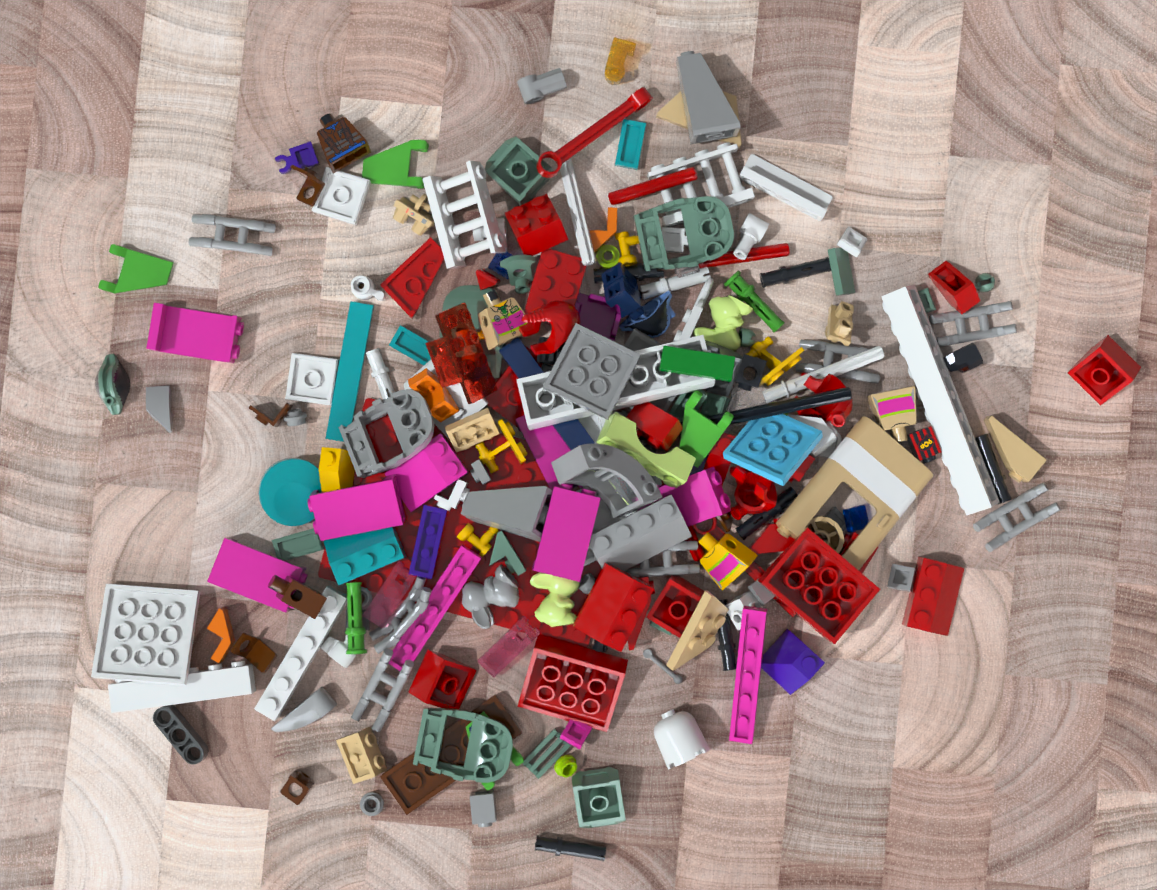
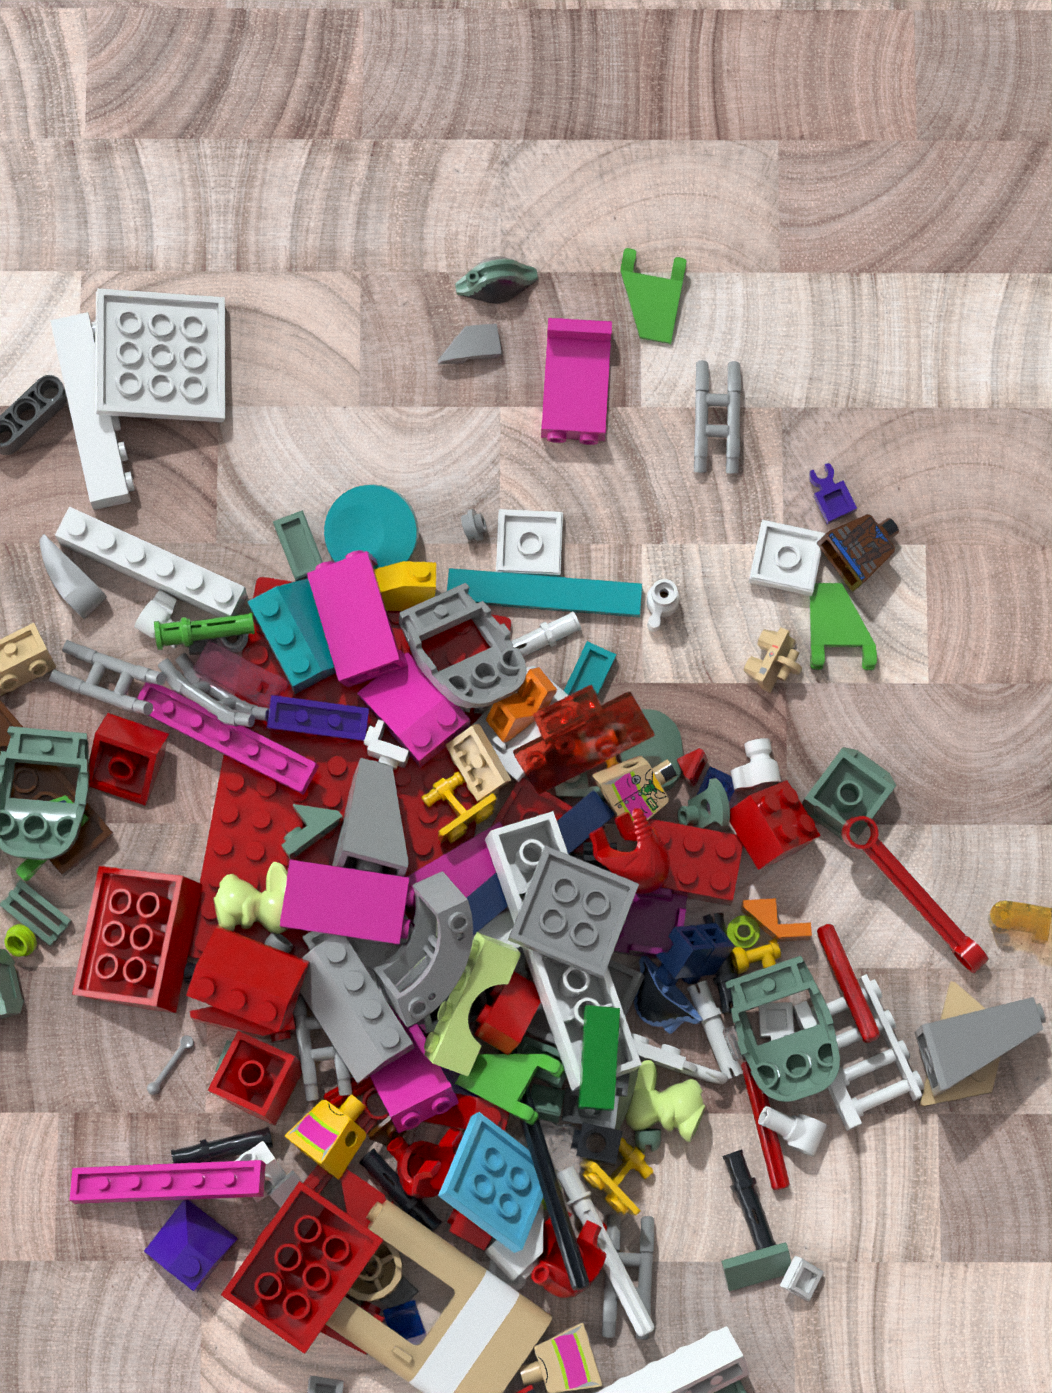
camera: 80 degrees right, 10 degrees down
(222, 627) = (177, 456): orange slope -> none
(250, 571) = (251, 495): dark pink panel -> none
(256, 652) = (146, 503): reddish brown bracket -> none
(264, 419) = (467, 485): reddish brown bracket -> none
(304, 599) = (223, 560): reddish brown torso -> none
(311, 181) = (801, 514): reddish brown bracket -> none
(414, 277) = (685, 667): red wing -> none
(443, 210) = (765, 700): white fence -> none
(480, 473) = (420, 781): light grey plate -> none
(481, 544) = (321, 793): yellow piece -> none
(497, 590) = (258, 820): light grey animal -> none
(508, 647) = (180, 844): clear pink plate -> none
(535, 87) = (969, 808): light grey piece -> none
(576, 733) = (66, 950): dark pink plate -> none
(577, 213) = (798, 881): white axle -> none
(630, 144) = (905, 949): teal tile -> none
(679, 738) = (70, 1094): white cylinder -> none
(699, 631) = (224, 1106): tan wing -> none
(746, 293) = (710, 1133): bright green pin -> none
(785, 187) = (870, 1176): white panel -> none
(840, 323) = (681, 1270): tan hips -> none

